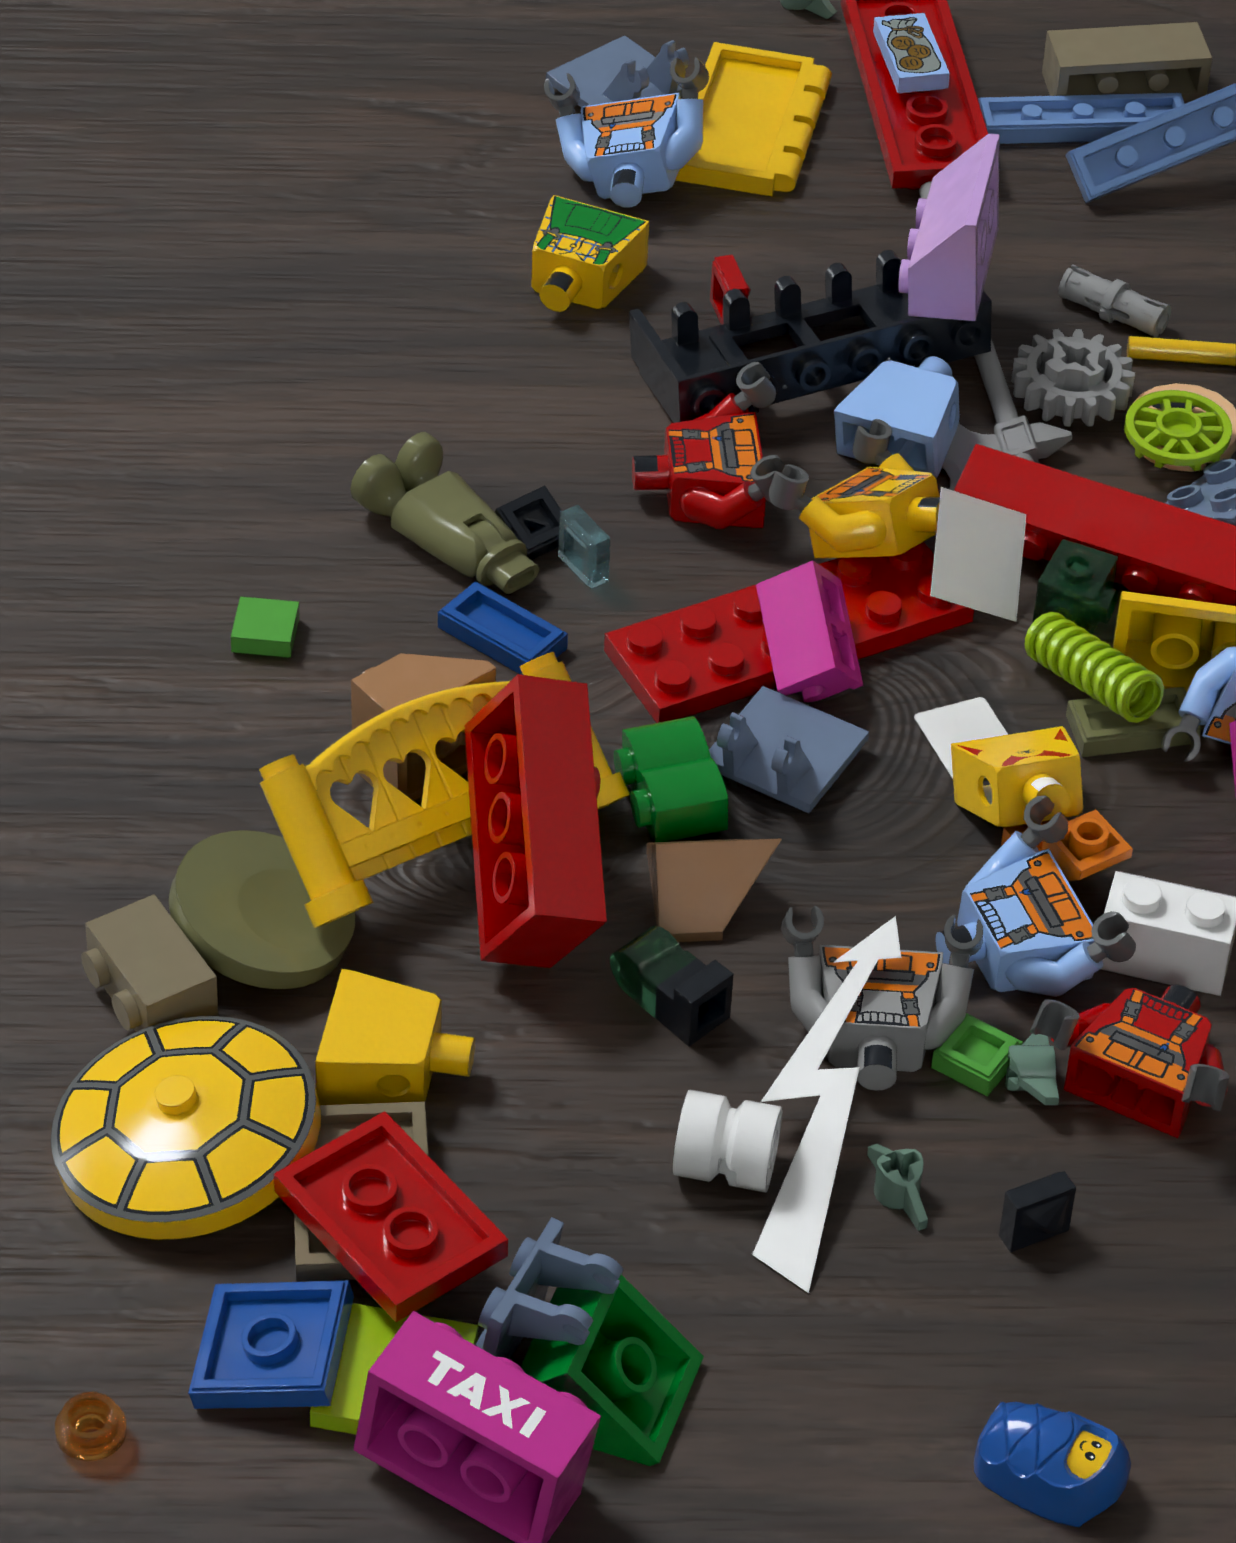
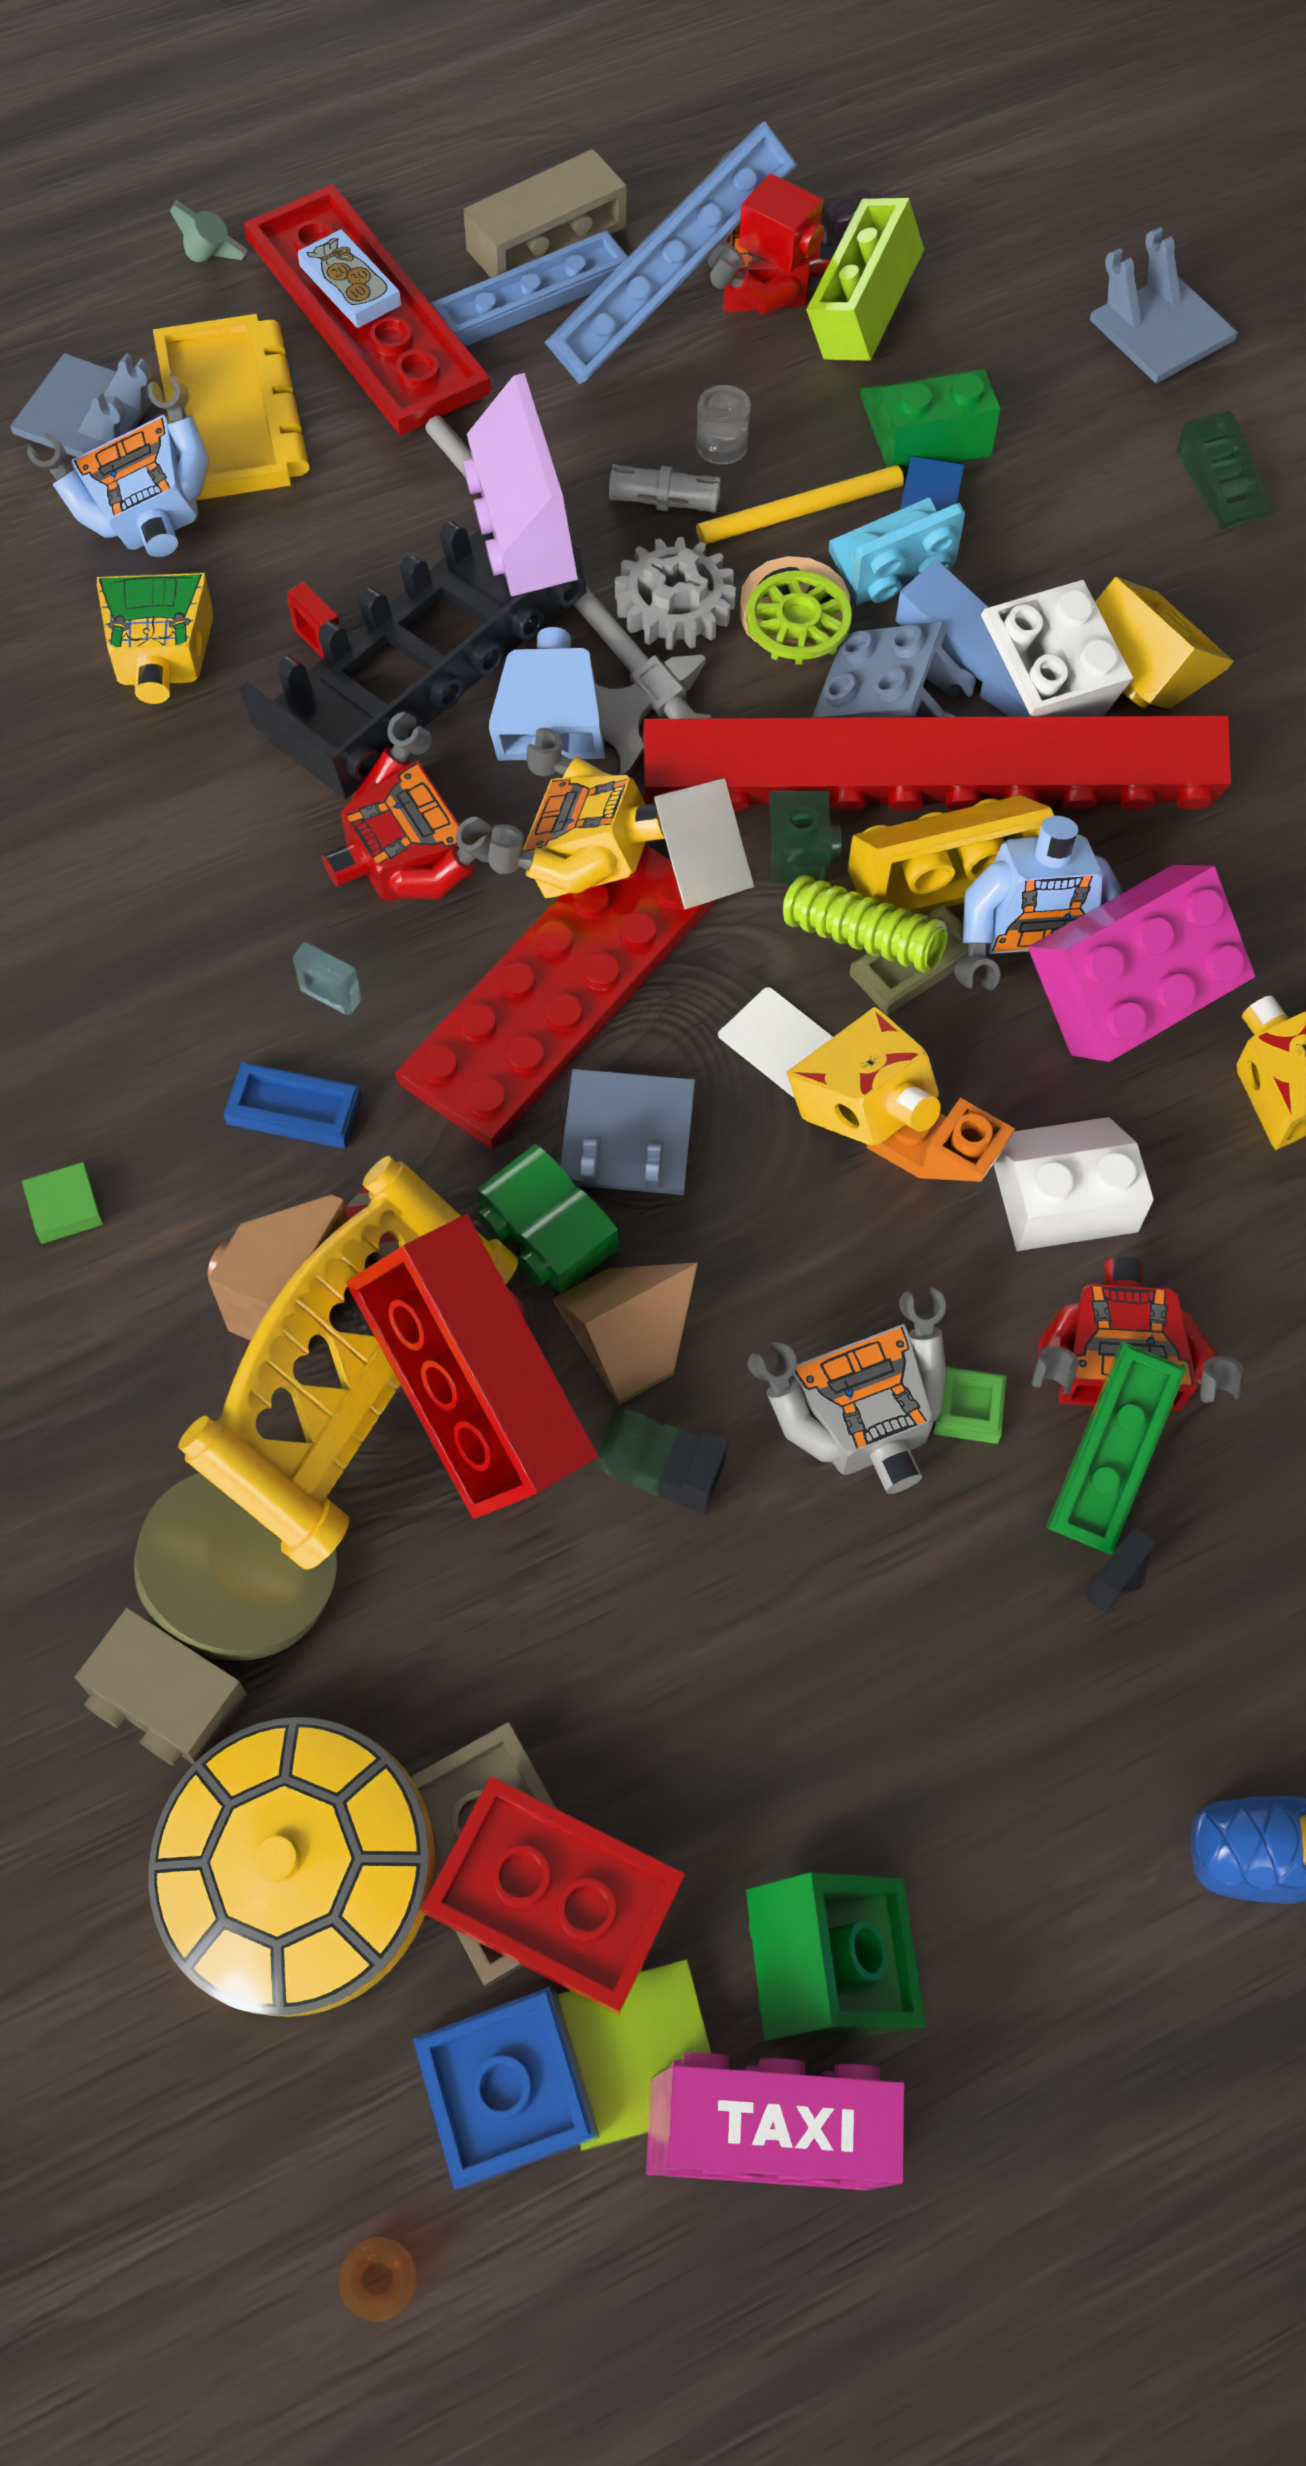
camera: 25 degrees left, 20 degrees up
(385, 1043) = (434, 1667): yellow torso -> none
(443, 514) = (175, 999): olive piece -> none
(523, 1308) = (730, 1985): sand blue plate -> none
(534, 521) = (262, 969): black tile -> none
(727, 1140) = (815, 1629): white wheel -> none
(799, 1212) = (908, 1672): white sticker -> none
(809, 633) = (592, 998): dark pink hinge -> none
(899, 1181) = (976, 1587): sand green piece -> none
(1031, 917) = (953, 1240): torso -> none
(1033, 1069) = (1033, 1406): sand green piece -> none
(1088, 1110) = (1116, 1448): none -> green tile
(1197, 259) = (723, 424): none -> clear wheel

